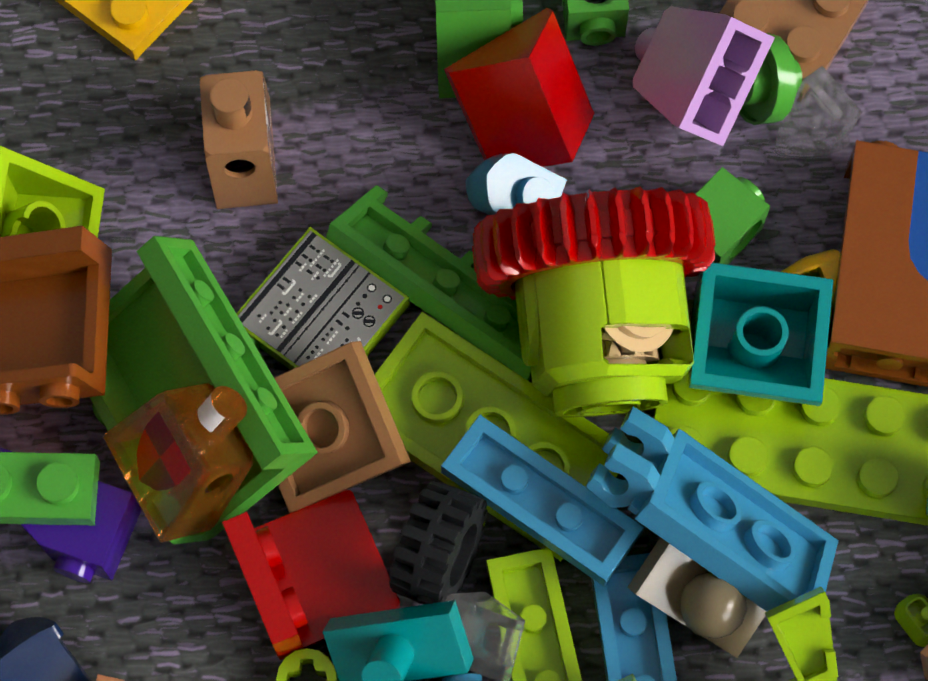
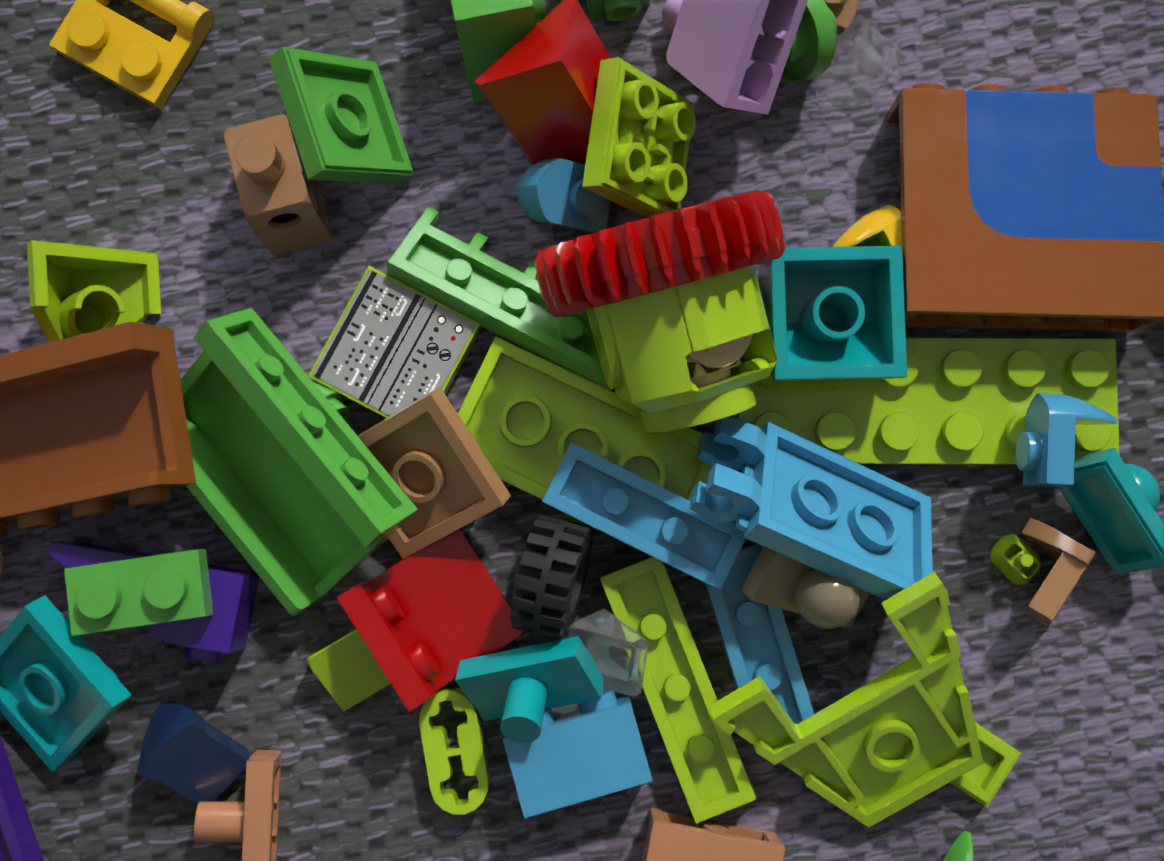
camera: 10 degrees left, 15 degrees up
(183, 457) = (285, 540): clear orange torso -> none
(218, 612) = (348, 670): none -> lime slope
(311, 87) = (340, 117): none -> bright green tile
(591, 140) = (638, 141): none -> lime tile
(736, 213) = (787, 175): bright green brick -> none

